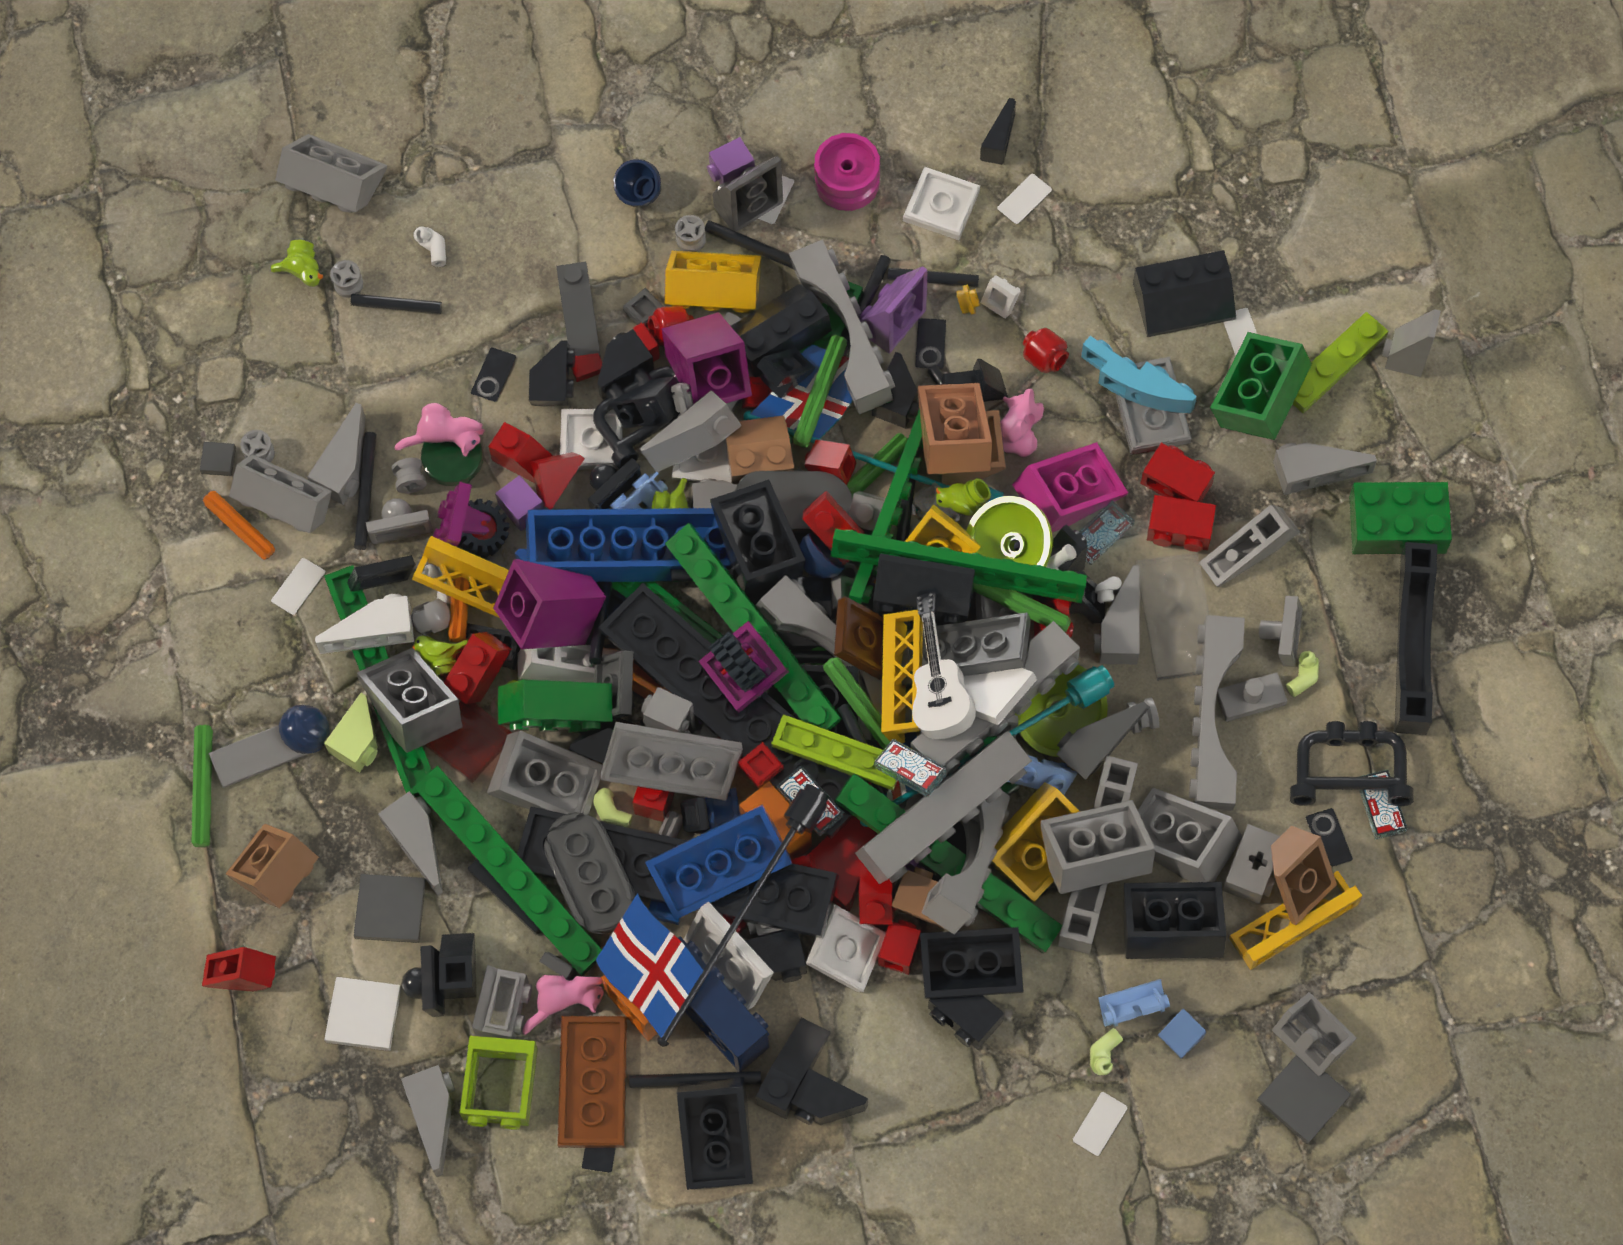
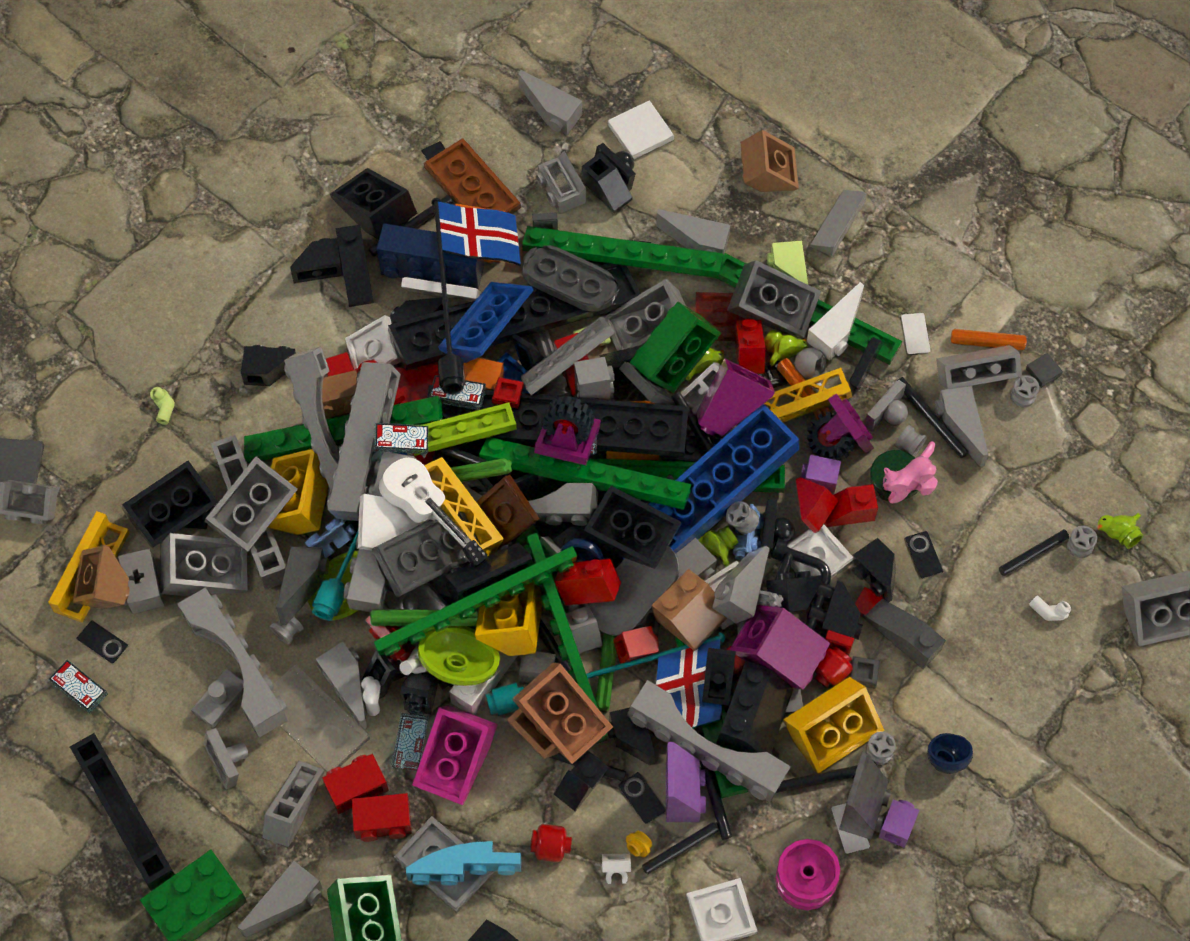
camera: 140 degrees right, 5 degrees down
(202, 786) = (855, 180): bright green axle -> none
(239, 970) = (731, 99): red slope -> none
(304, 729) = (824, 247): dark blue piece -> none
(389, 908) = (678, 191): dark grey tile -> none
(501, 1049) = (519, 121): lime window -> none
(557, 993) = (531, 203): bright pink animal -> none
(642, 498) = (742, 517): none -> light grey wheel
(819, 391) = (684, 684): bright green axle -> none
(965, 497) = (518, 675): lime animal -> none
(971, 963) = (270, 393): black slope -> none
(1017, 424) = (525, 765): bright pink animal -> none
(1100, 1123) = (138, 367): white sticker -> none
(1133, 1003) = (153, 448): light blue hinge -> none
(1182, 1033) = (119, 449): medium blue slope -> none
(1307, 674) = (188, 739): yellowish green arm -> none
(1367, 735) = (117, 723): black bar -> none

